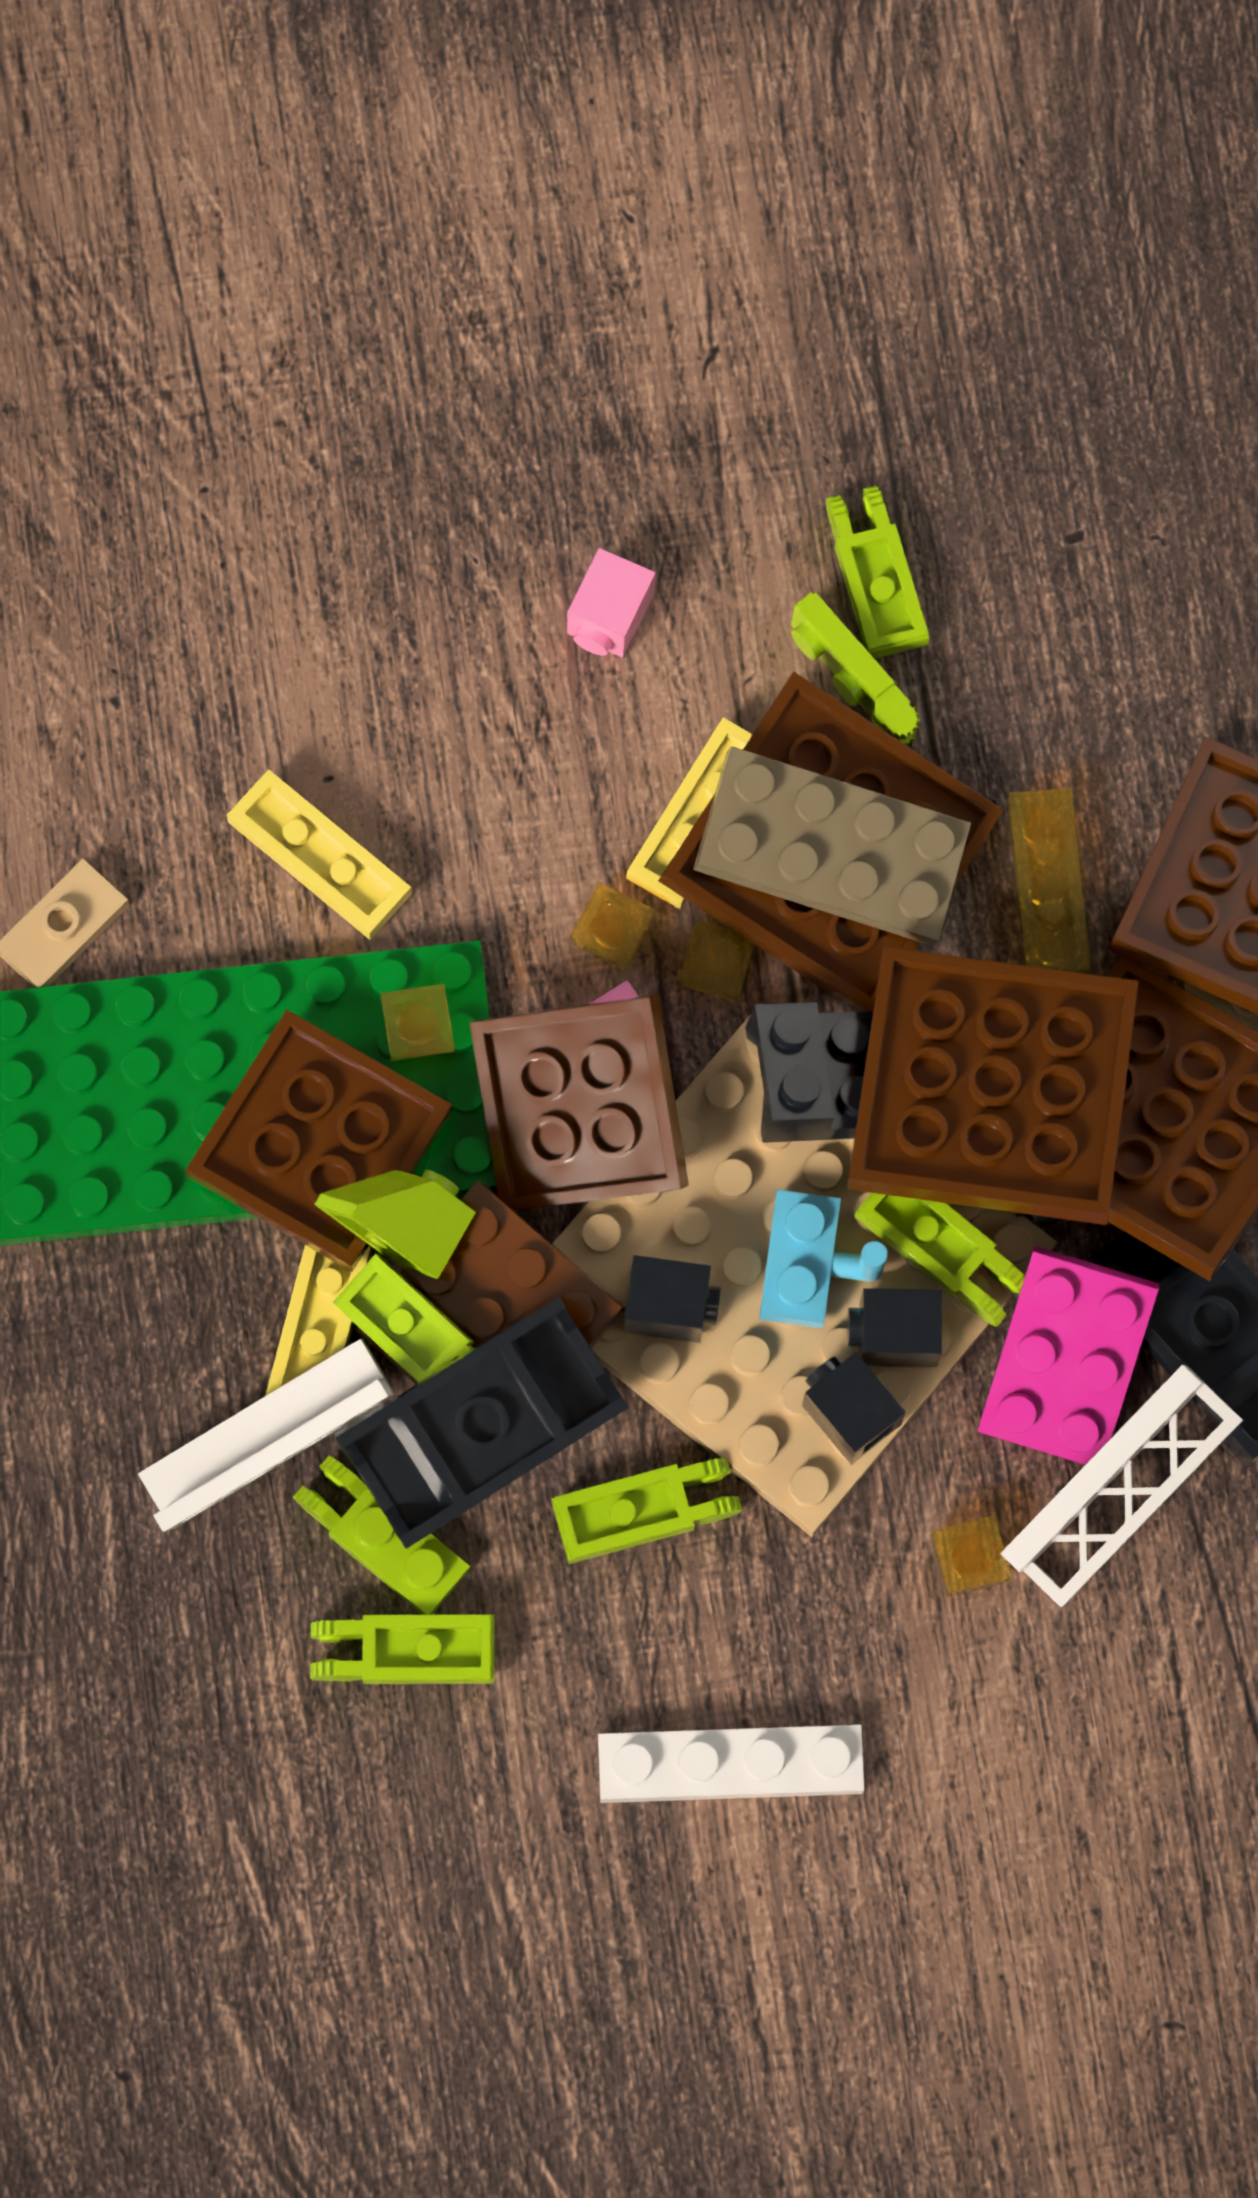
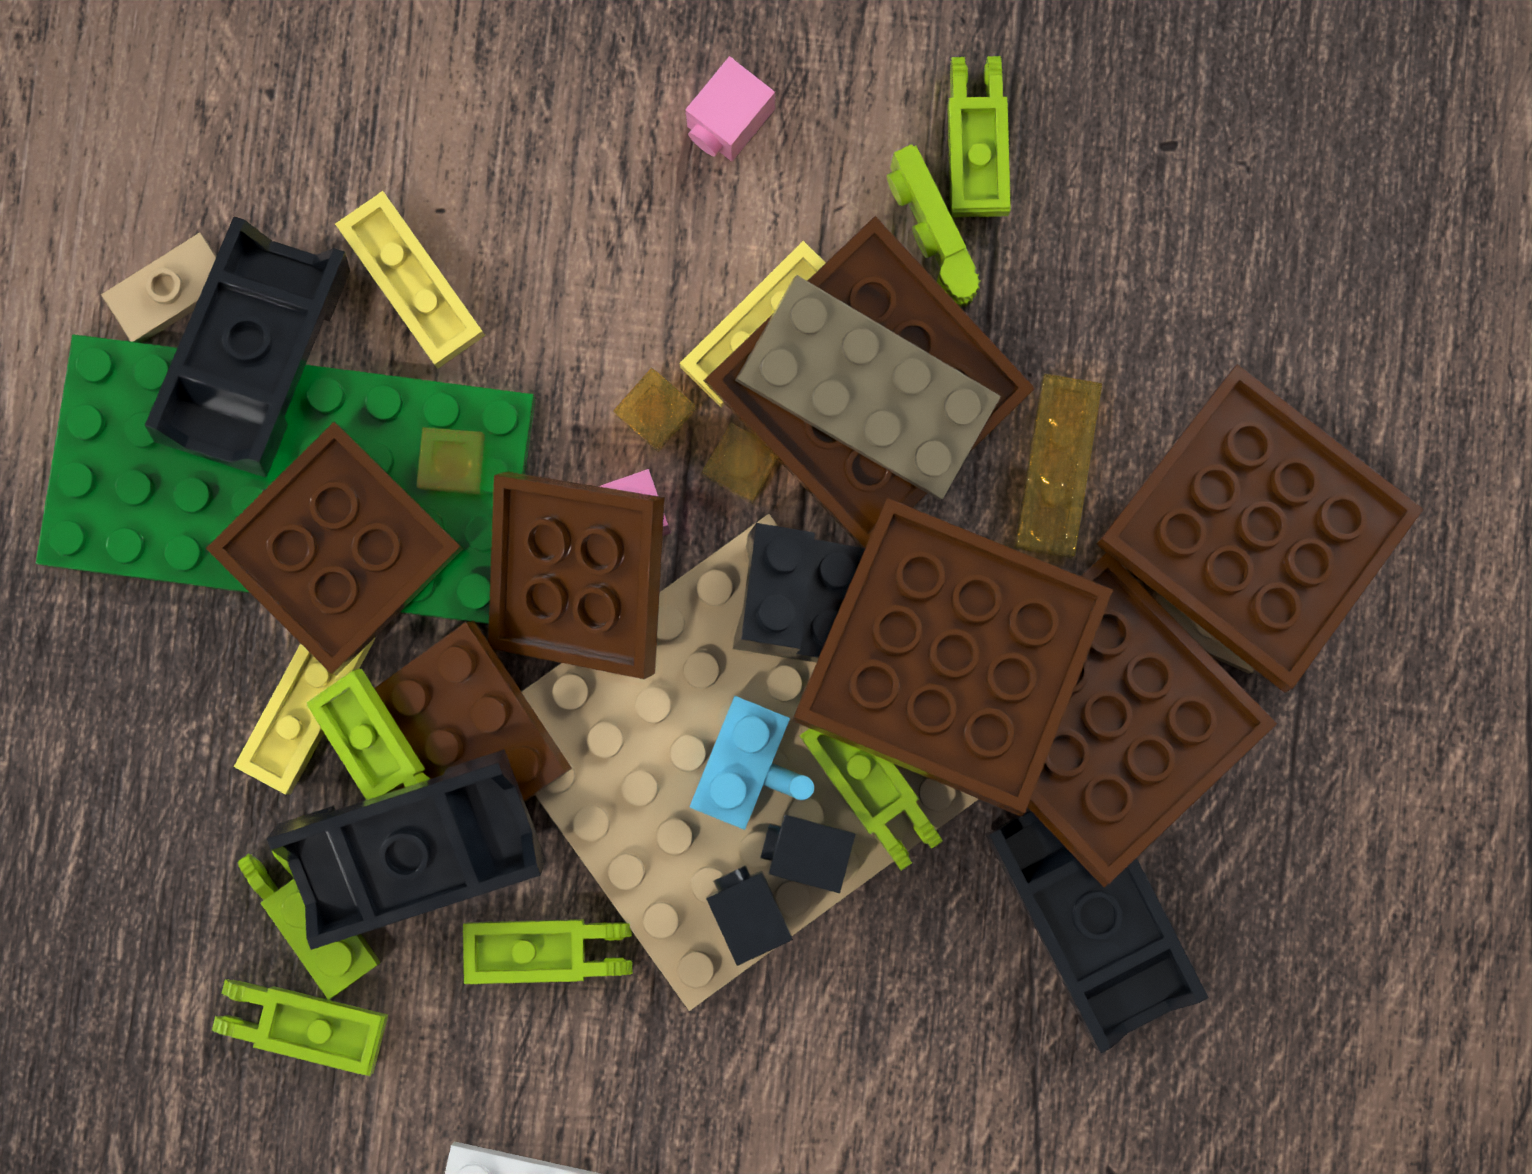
camera: 20 degrees right, 10 degrees up
(173, 962) = (246, 349): none -> black piece
(266, 1434) = (222, 807): white fence -> none
(403, 1217) = (383, 643): lime slope -> none
(670, 1299) = (610, 775): black brick -> none
(970, 1556) = (824, 1068): clear yellow plate -> none
(1067, 1356) = (958, 914): dark pink plate -> none
(1103, 1469) = (960, 1032): white fence -> none

